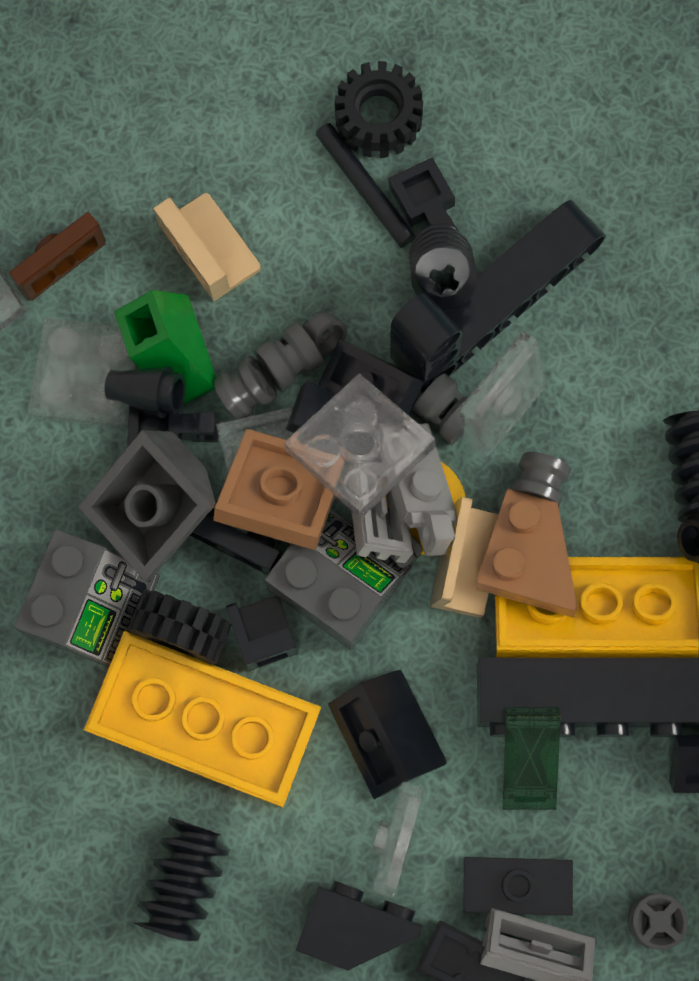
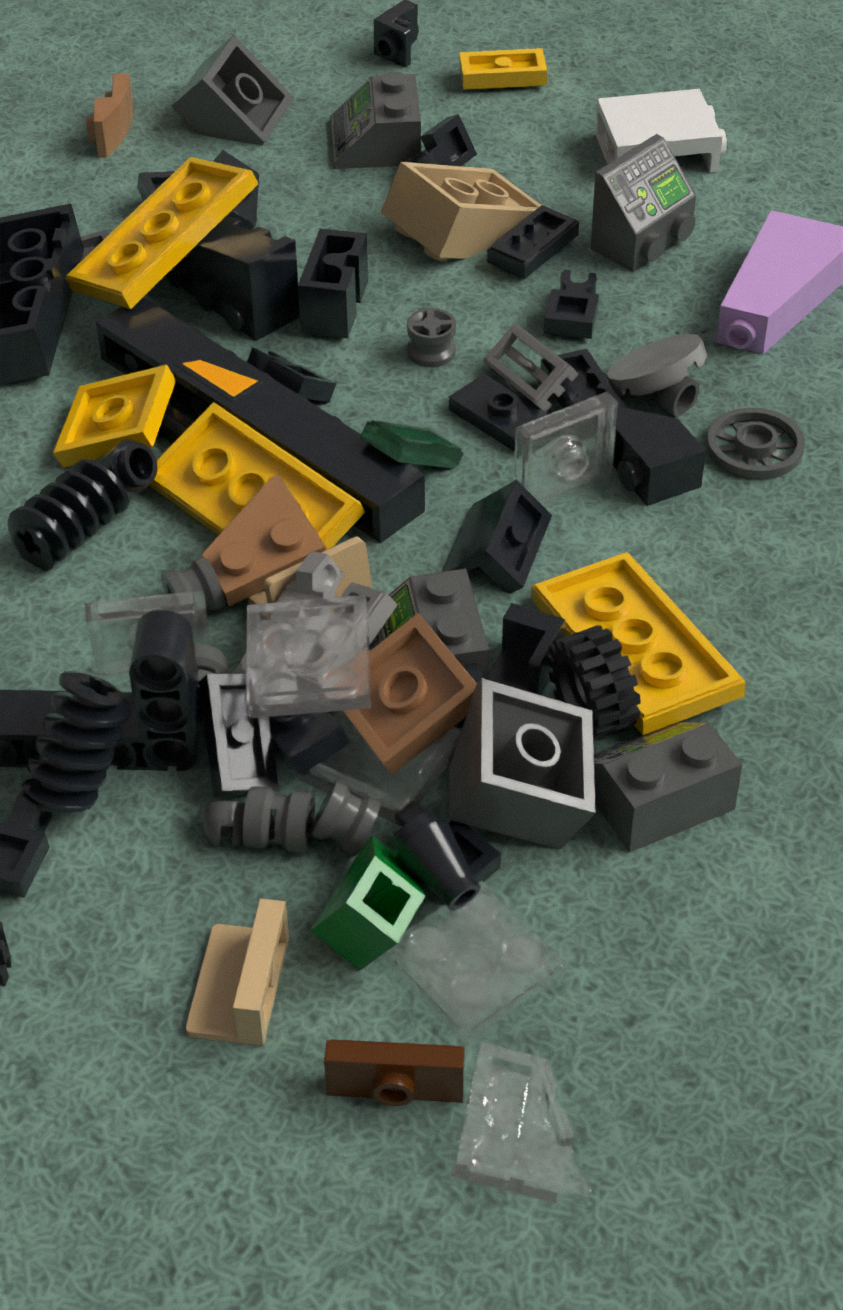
camera: 140 degrees left, 30 degrees down
(183, 881) = (754, 548): black piece -> none
(365, 185) = (40, 918): black bar -> none

